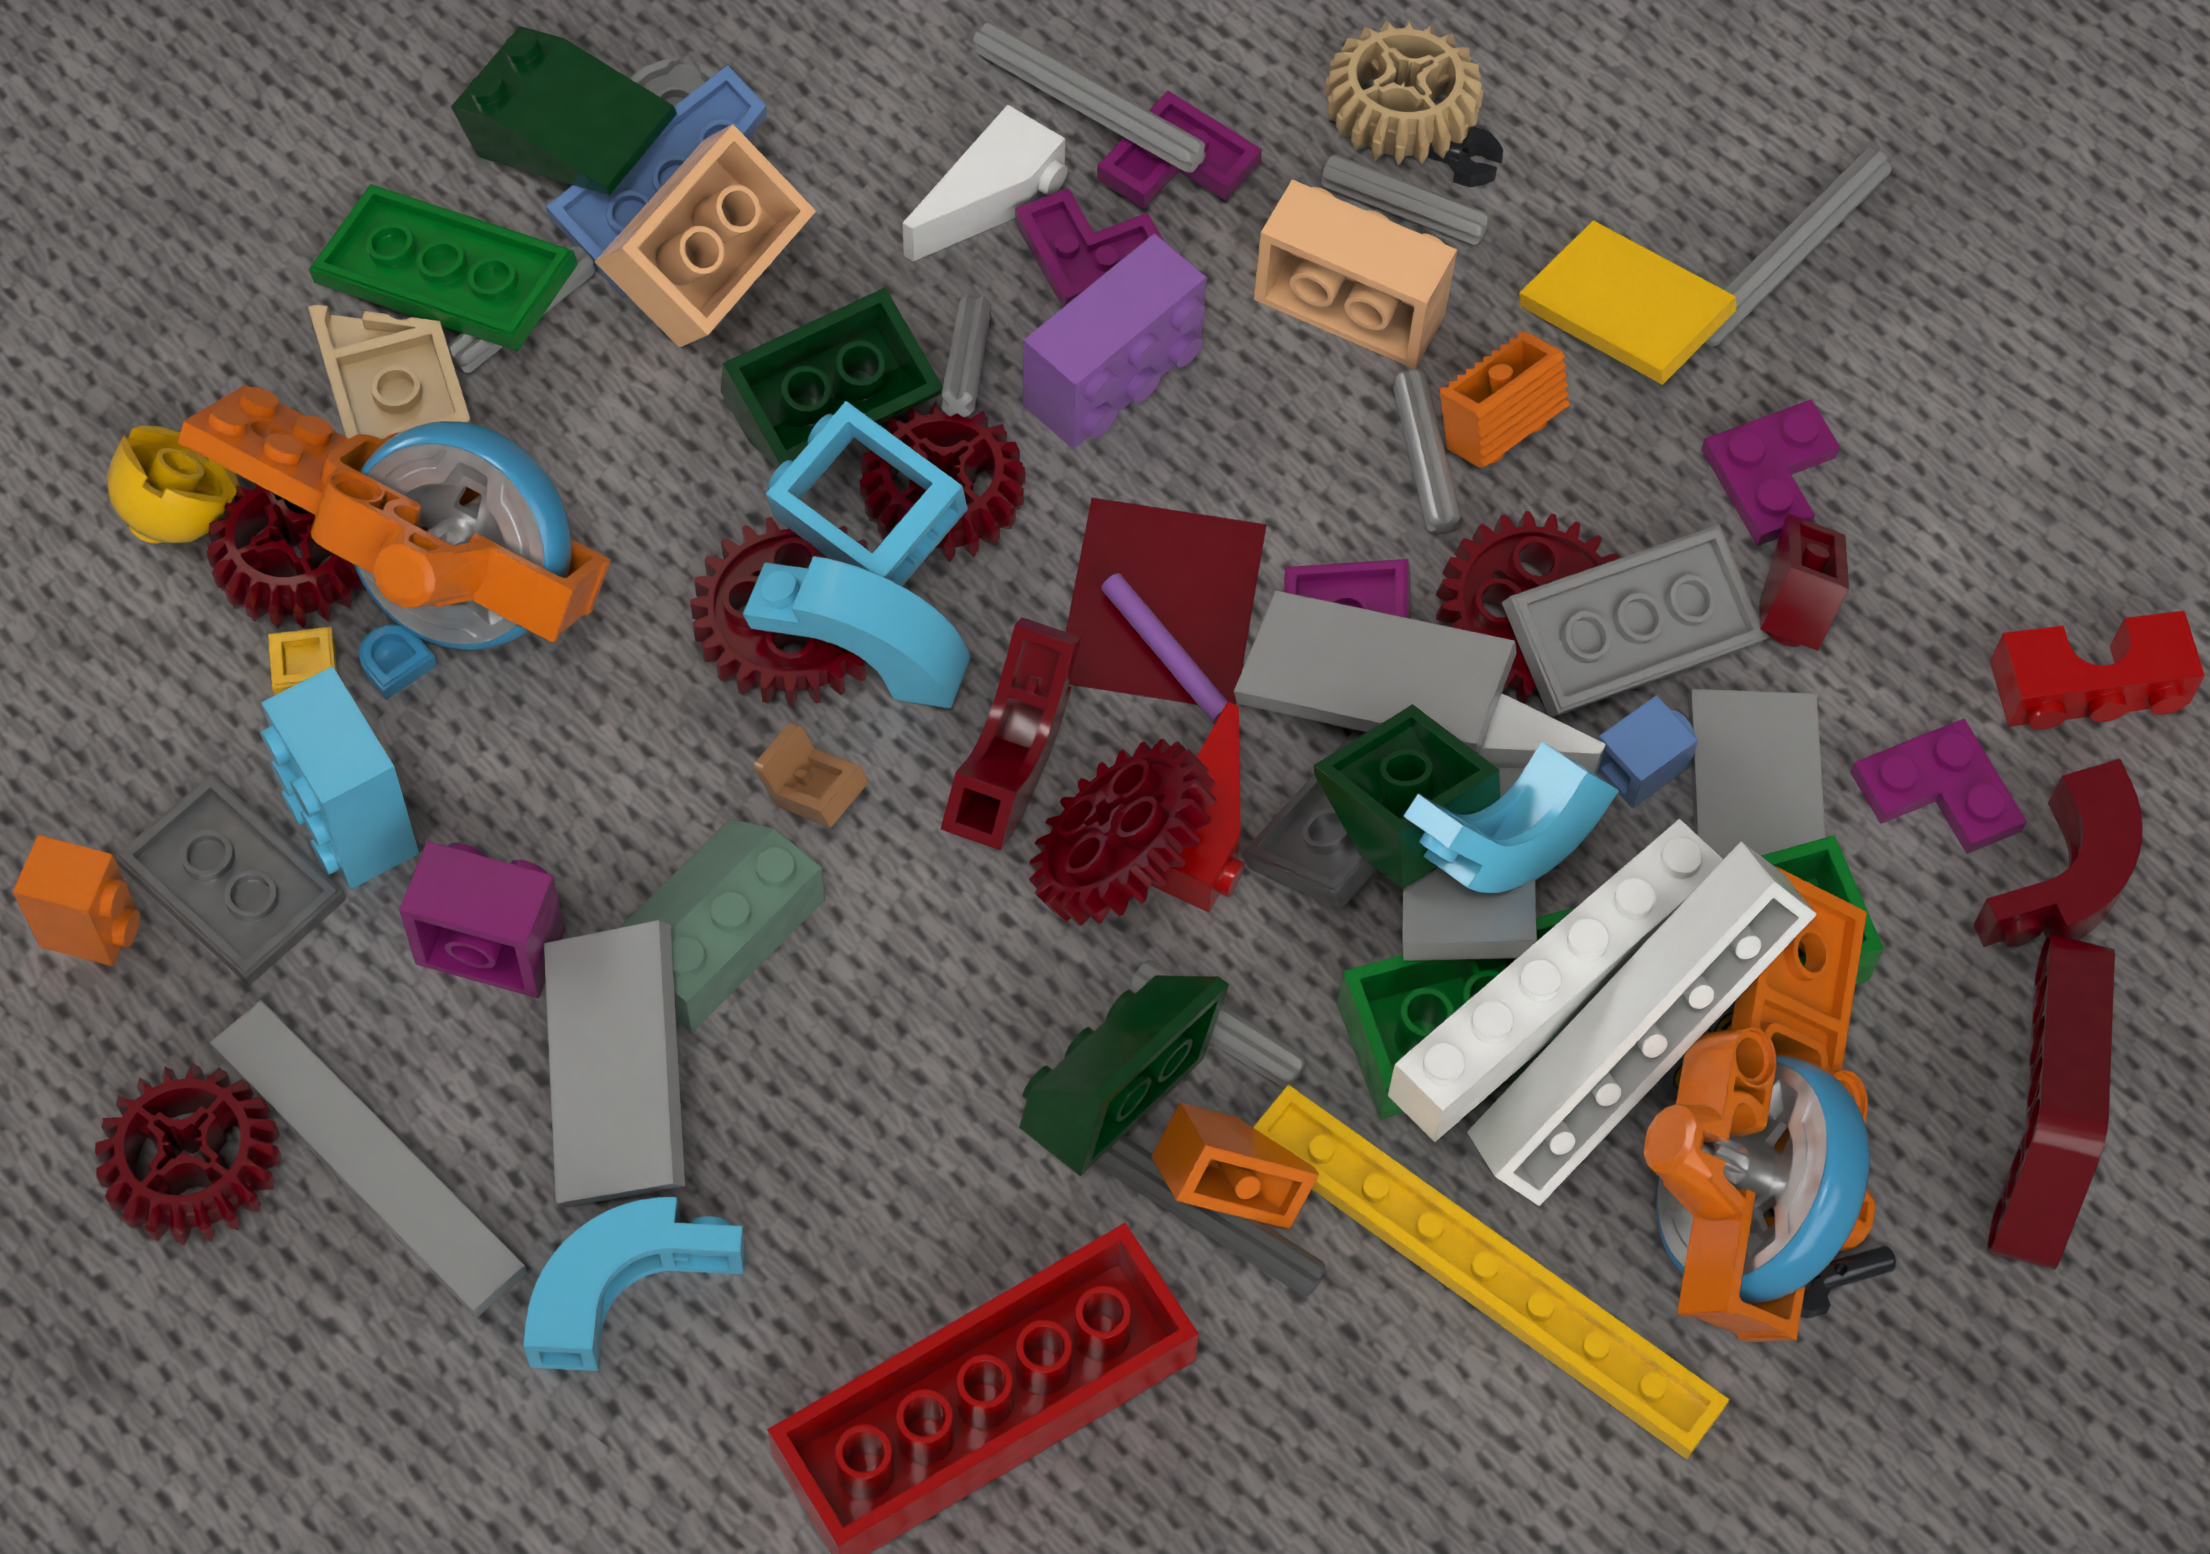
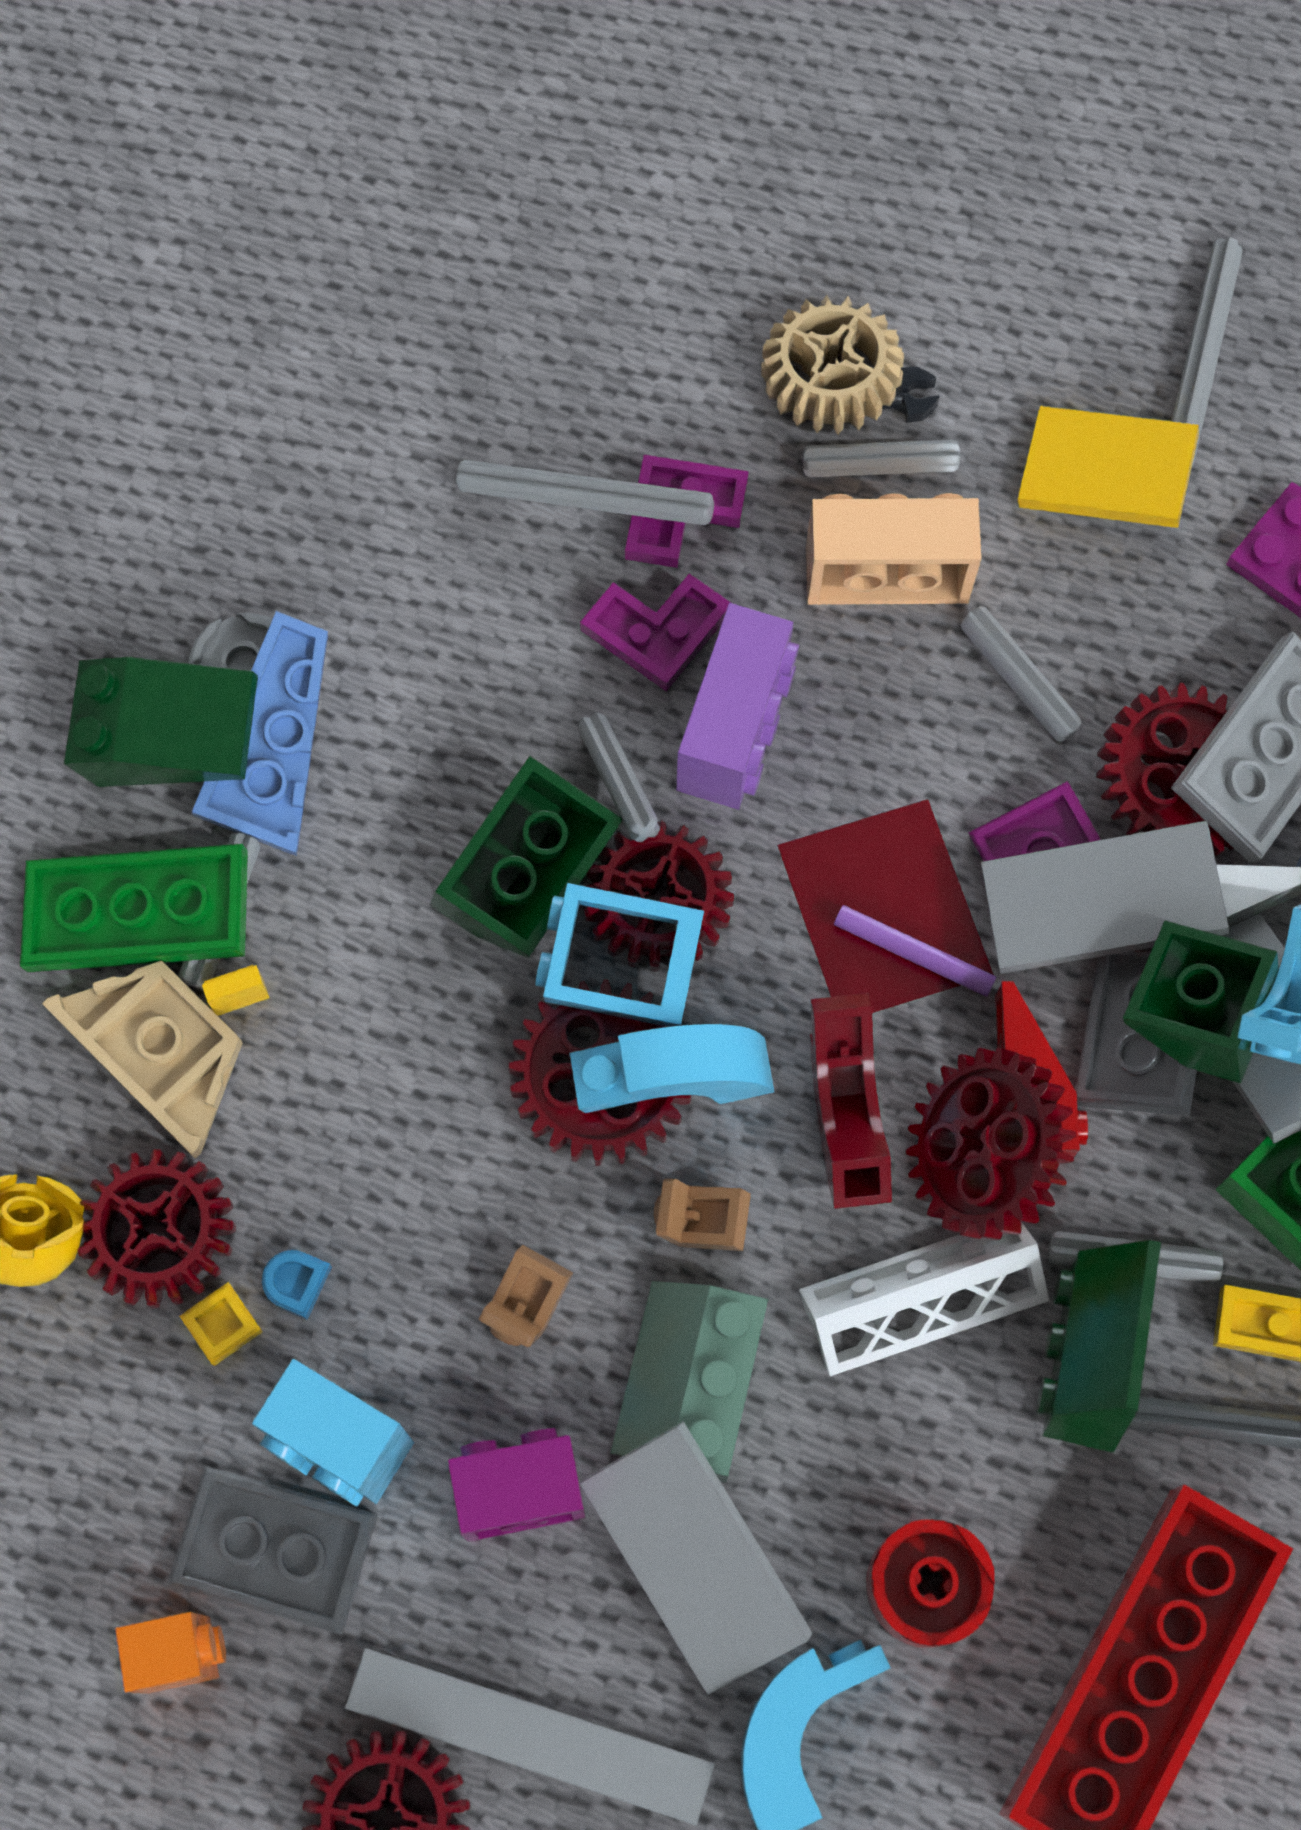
camera: 25 degrees left, 10 degrees up
(492, 379) = (235, 990): none -> yellow tile
(494, 522) = (288, 1119): orange piece -> none
(598, 770) = (525, 1298): none -> medium nougat bracket
(705, 236) = (347, 777): light nougat brick -> none
(833, 1238) = (964, 1592): none -> red brick
(989, 934) = (911, 1282): none -> white fence
(1000, 171) = (548, 605): white slope -> none
(1231, 1167) = (1222, 1382): orange slope -> none
(1504, 399) = (1065, 603): orange brick -> none

